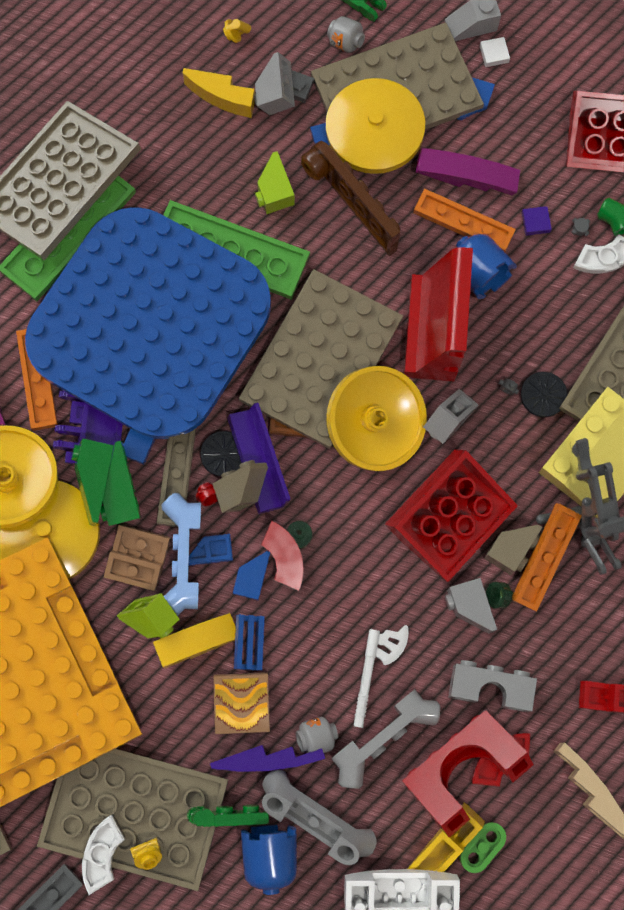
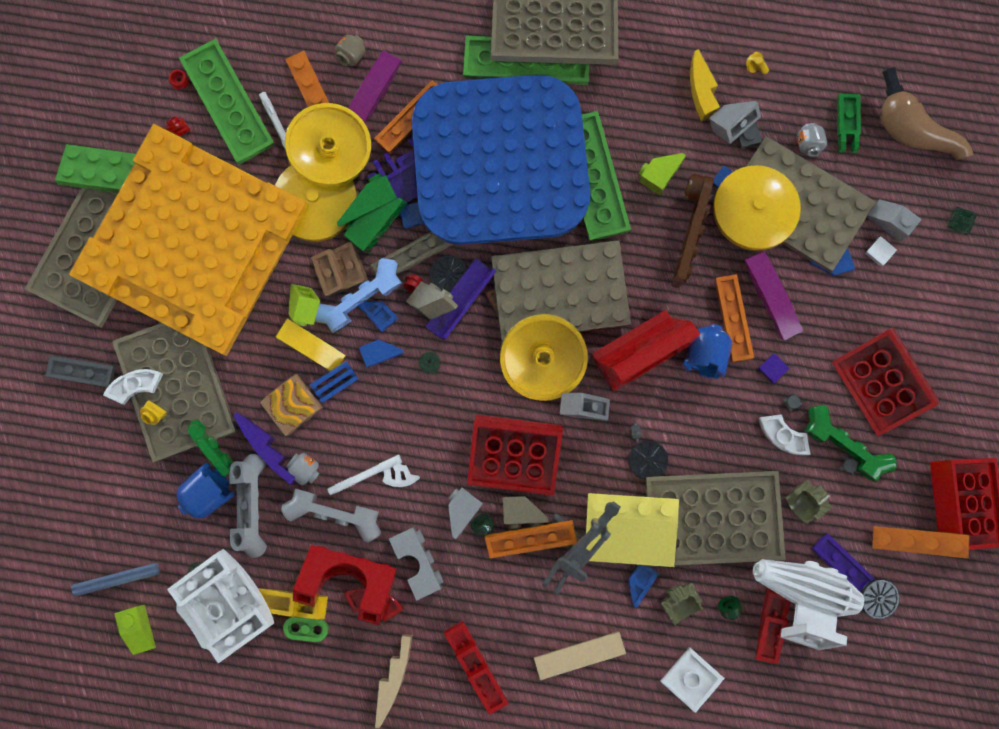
camera: 60 degrees right, 5 degrees up
(286, 555) = (408, 363): tile -> none

